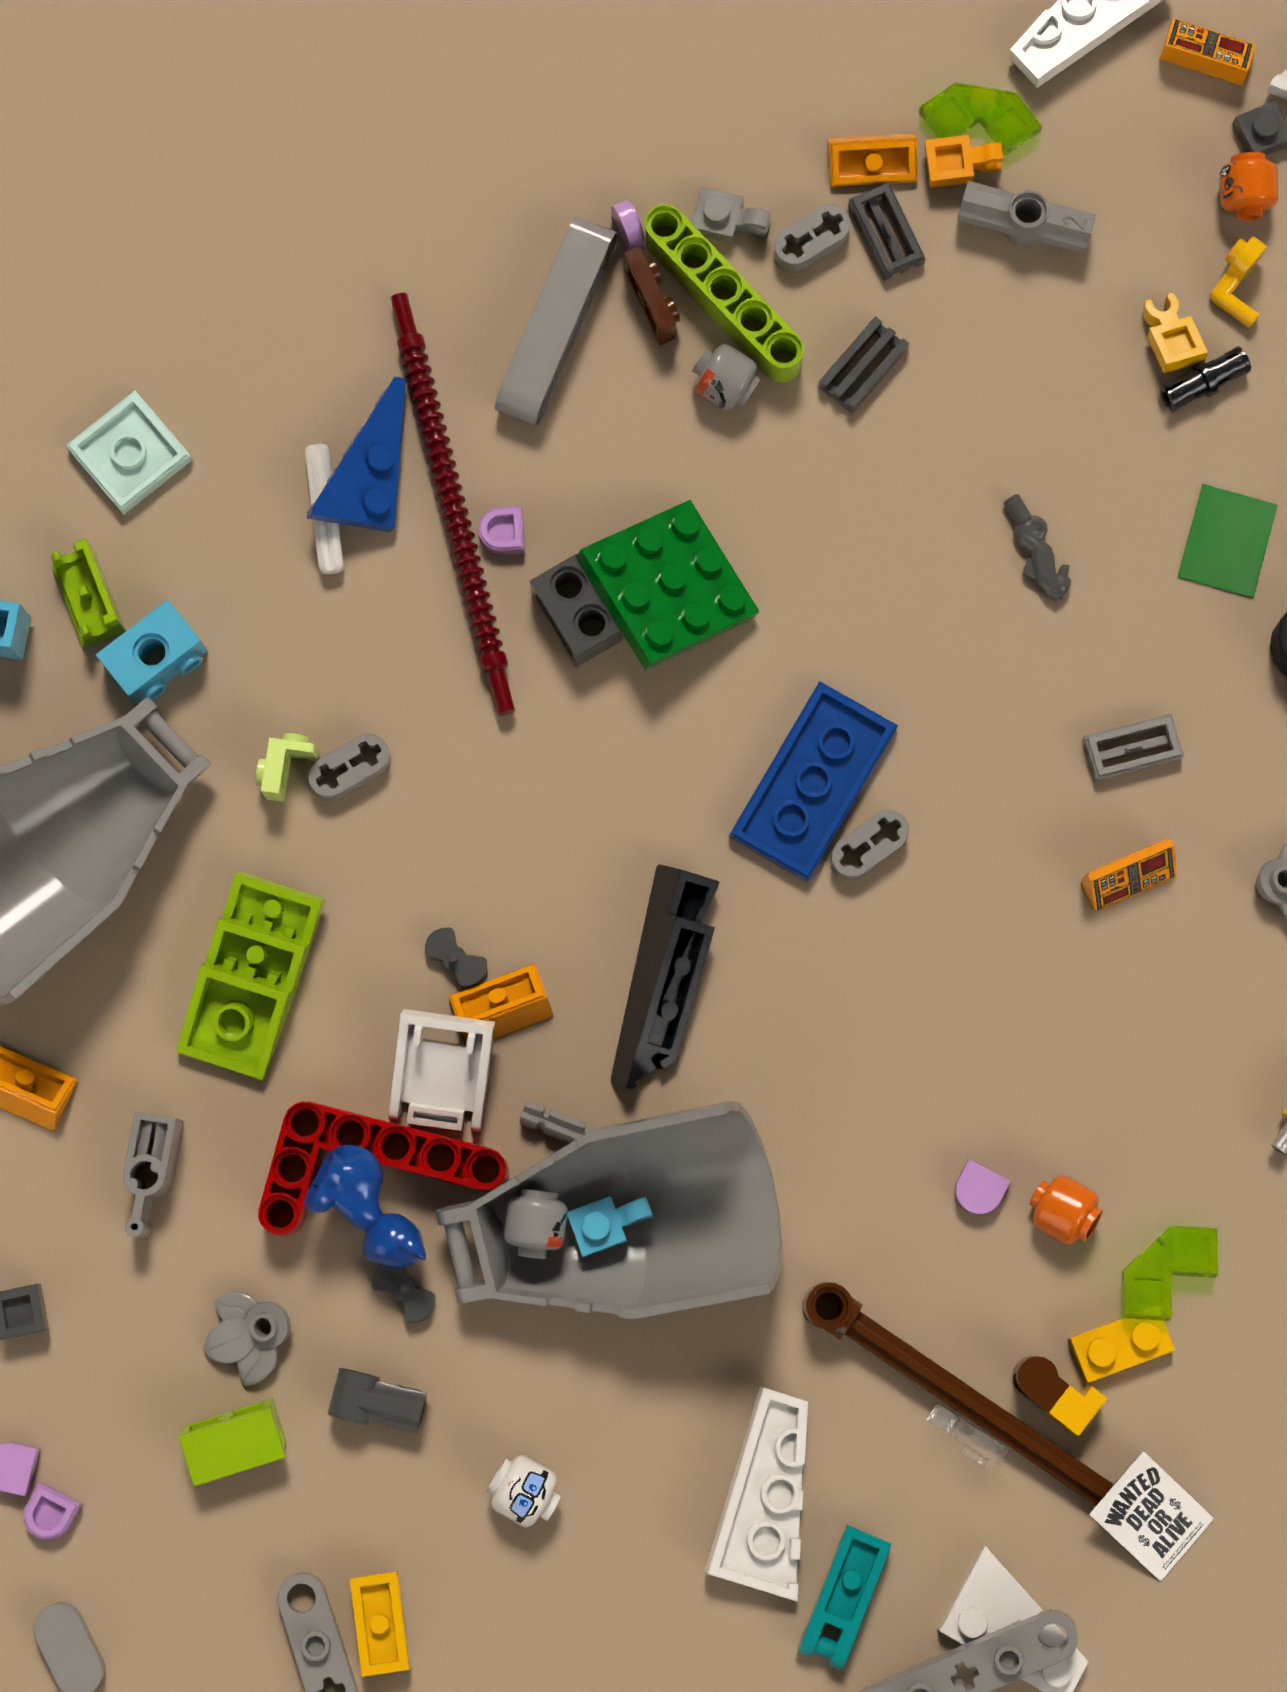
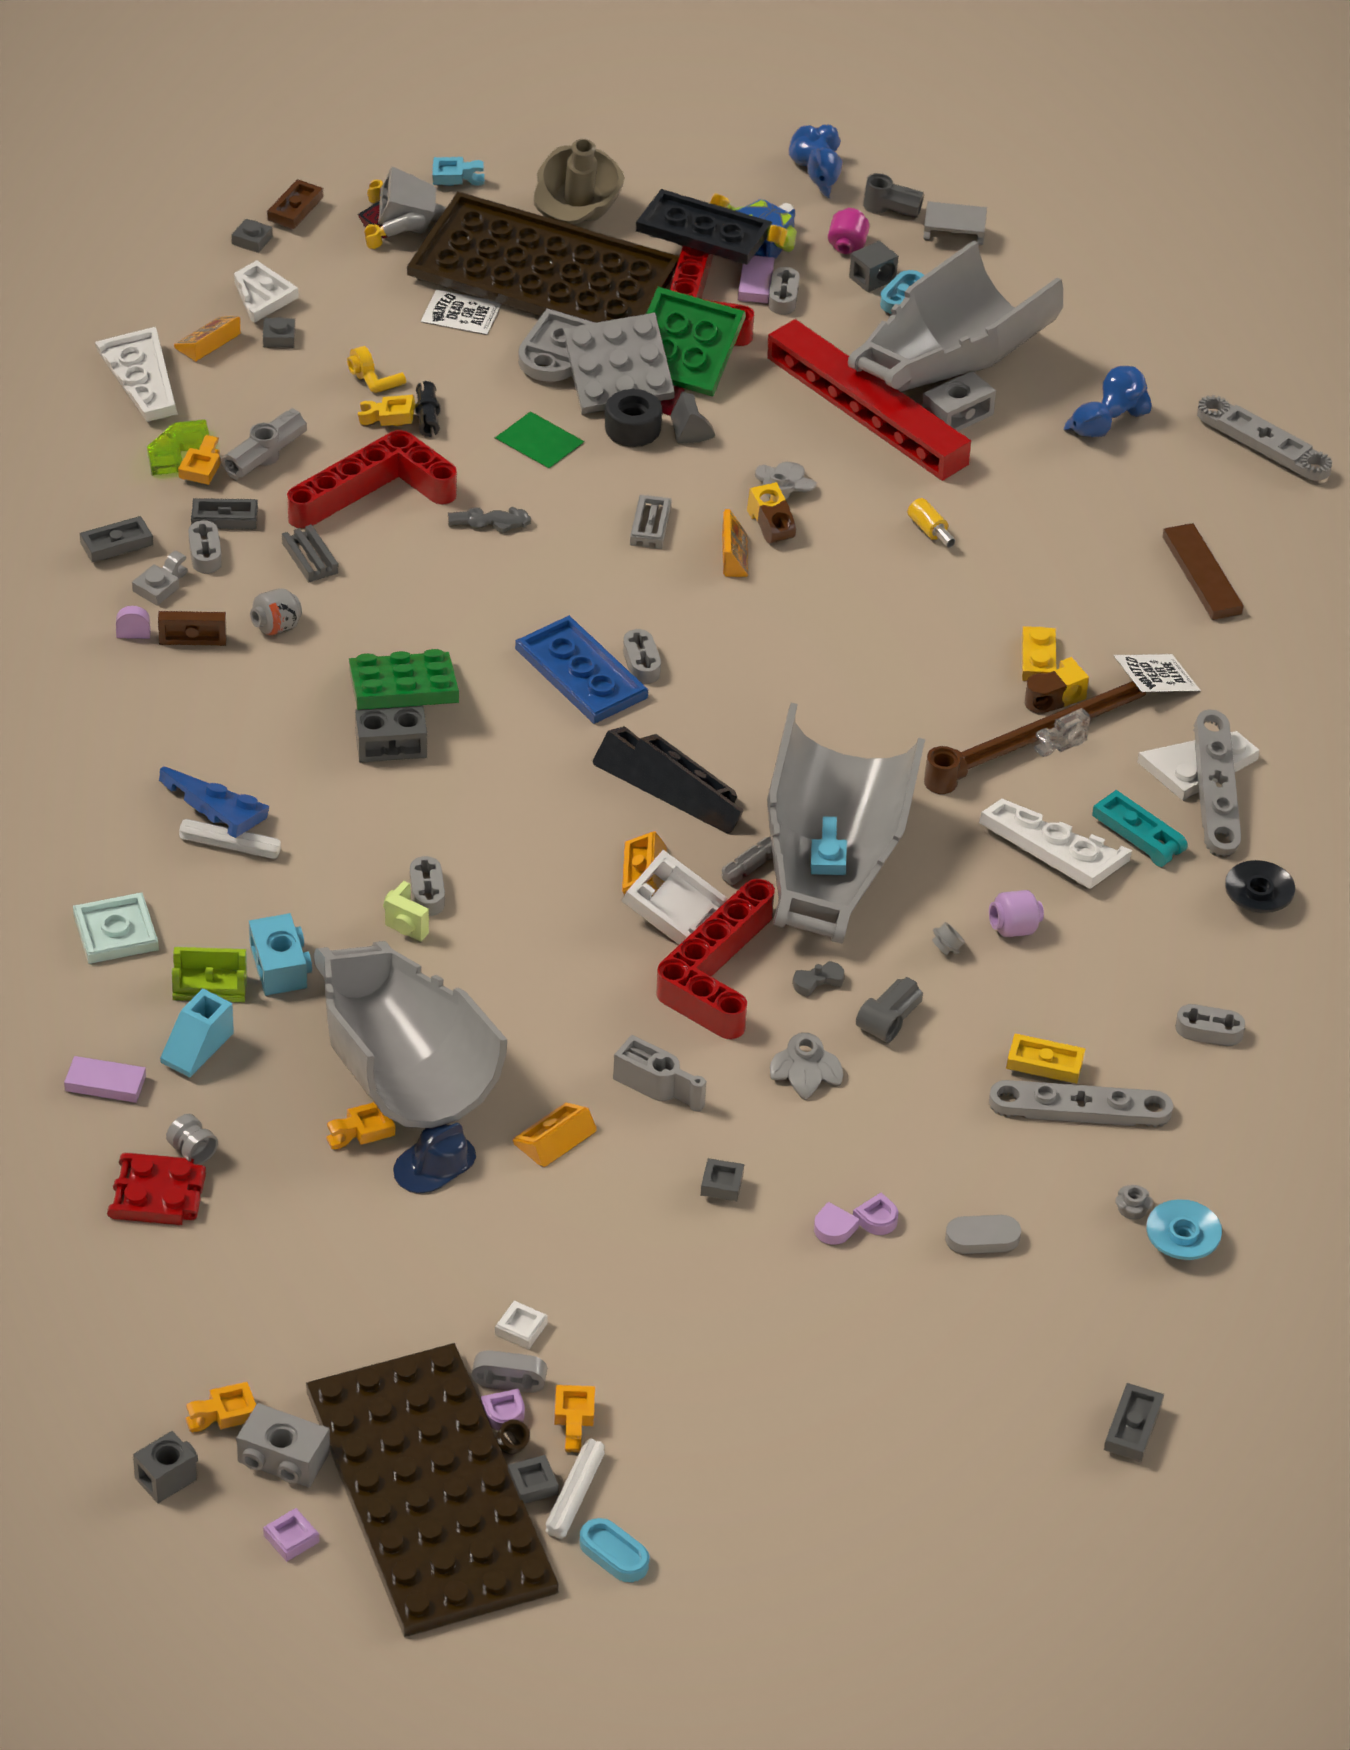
camera: 70 degrees left, 35 degrees down
(233, 1442) = (878, 1091): lime hinge -> none
(250, 975) = (547, 980): lime slope -> none
(352, 1185) = (732, 952): blue animal -> none
(467, 969) = (586, 881): dark grey piece -> none
(492, 660) = (142, 756): dark red hose -> none
(503, 530) = (307, 757): lavender tile -> none
(523, 1491) = (990, 951): white head -> none
(530, 1427) = (947, 939): none -> light grey plate
(535, 1223) = (810, 873): light grey head -> none
(556, 321) = (177, 678): light grey beam -> none
(607, 1496) = (1015, 913): none -> lavender head
(716, 274) = (217, 591): lime beam -> none
(768, 131) = (116, 539): none -> dark grey plate
(872, 159) = (170, 503): light orange slope -> none
(979, 1188) = (901, 682): lavender tile -> none
(1028, 370) = (367, 470): none -> red beam
(1066, 1210) = (938, 642): orange head -> none
(1175, 1253) = (1000, 621): clear neon green tile -> none
(1212, 898) = (773, 515): none -> reddish brown leg
(1249, 185) = (314, 344): orange head -> none

